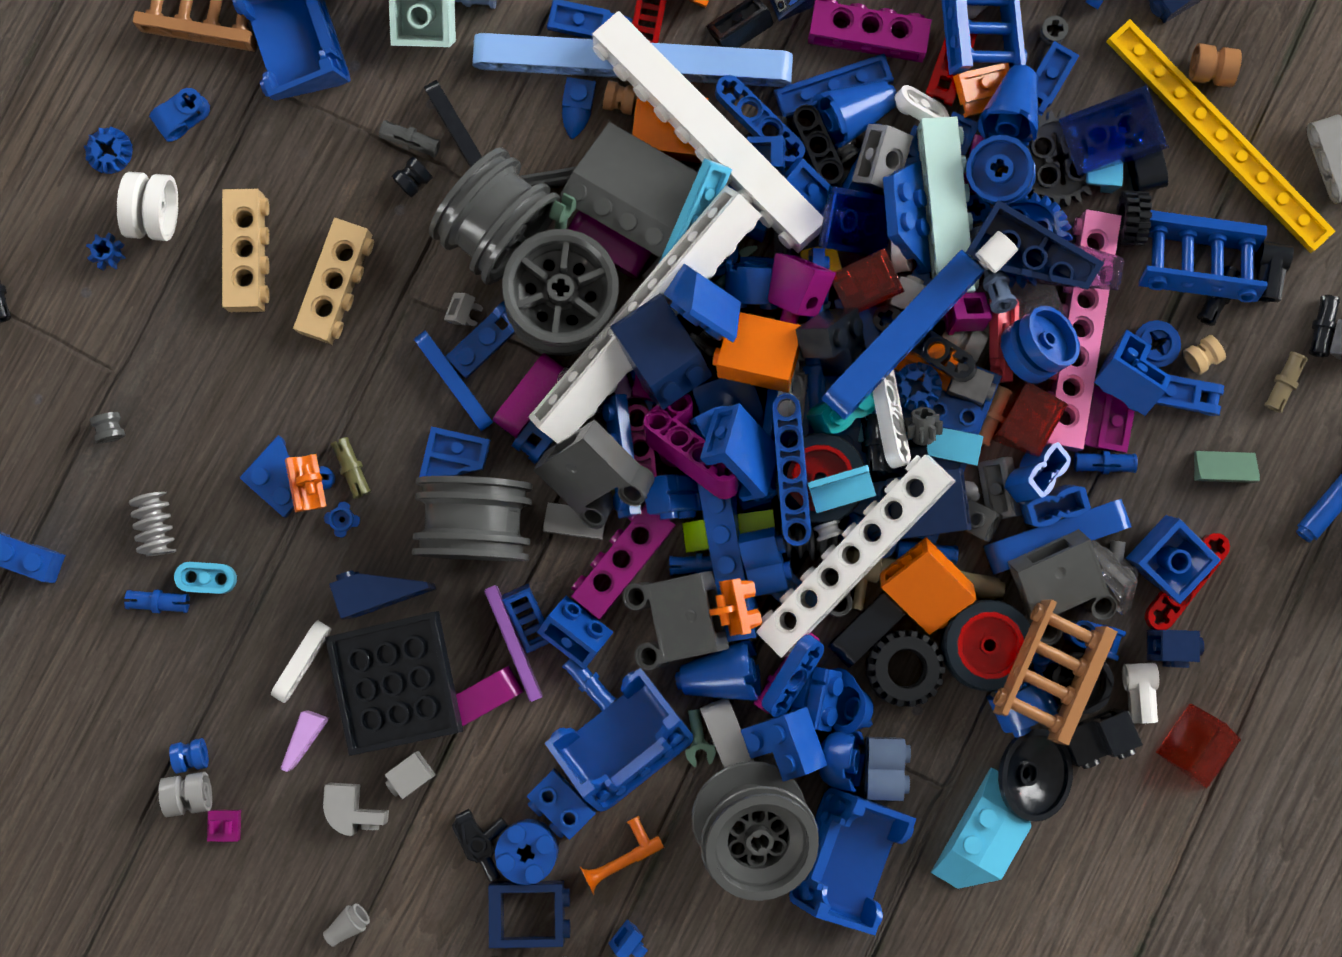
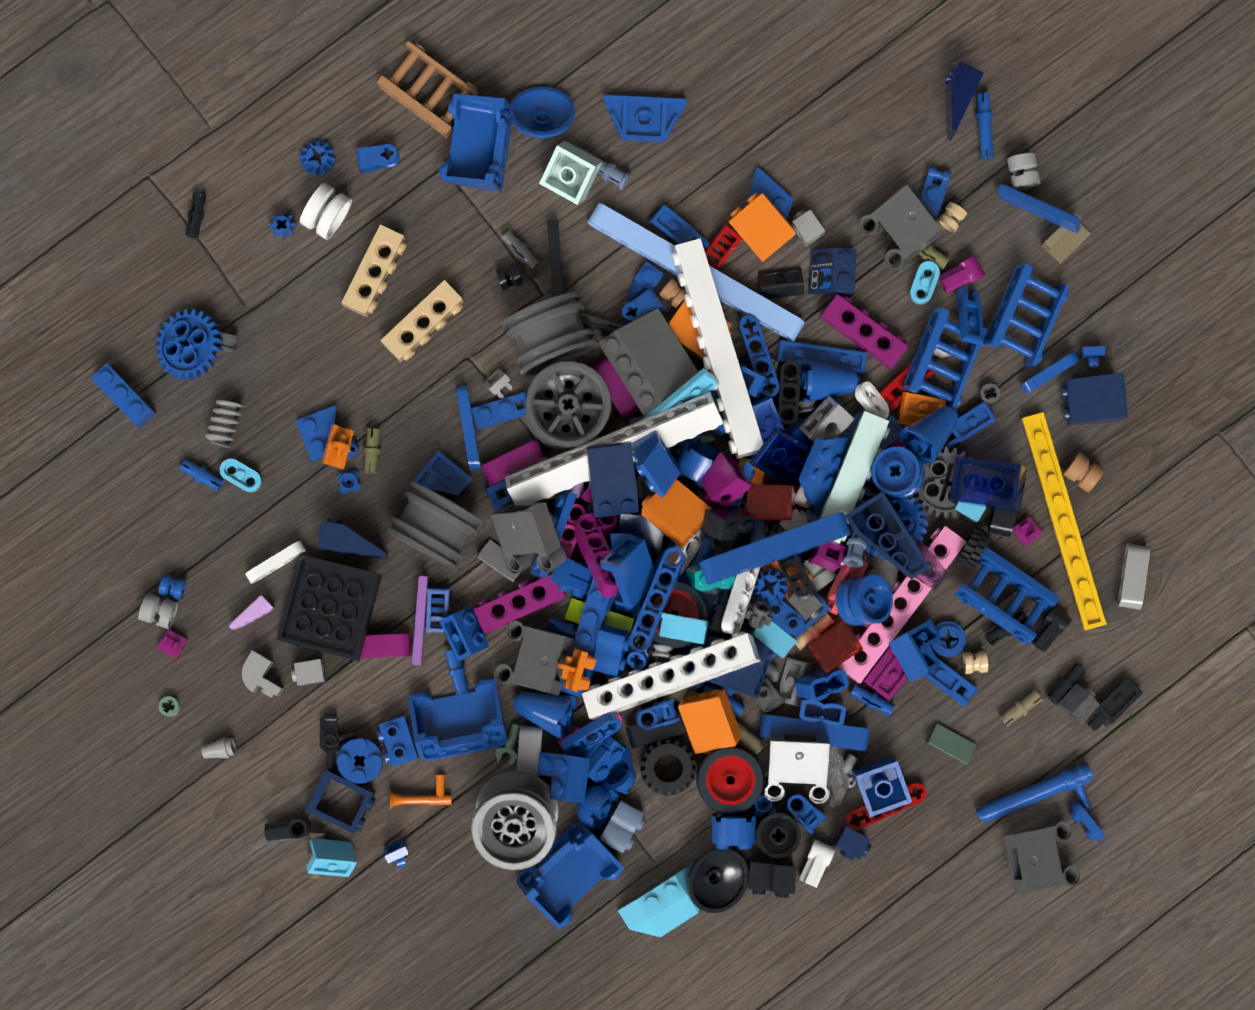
camera: 25 degrees right, 0 degrees up
(54, 443) = (173, 337): none -> blue gear
(251, 897) = (171, 712): none -> sand green bush
(562, 211) = (594, 354): sand green bar -> none
(587, 131) = (641, 306): none -> blue piece
(799, 562) = (632, 660): none -> blue bush
(865, 606) = (659, 714): none -> blue piece
(996, 252) = (858, 526): white piece -> none
(1085, 670) = (764, 839): medium nougat fence -> none
(1183, 170) = (1026, 531): none -> magenta tile
(1199, 745) = (837, 918): clear red slope -> none

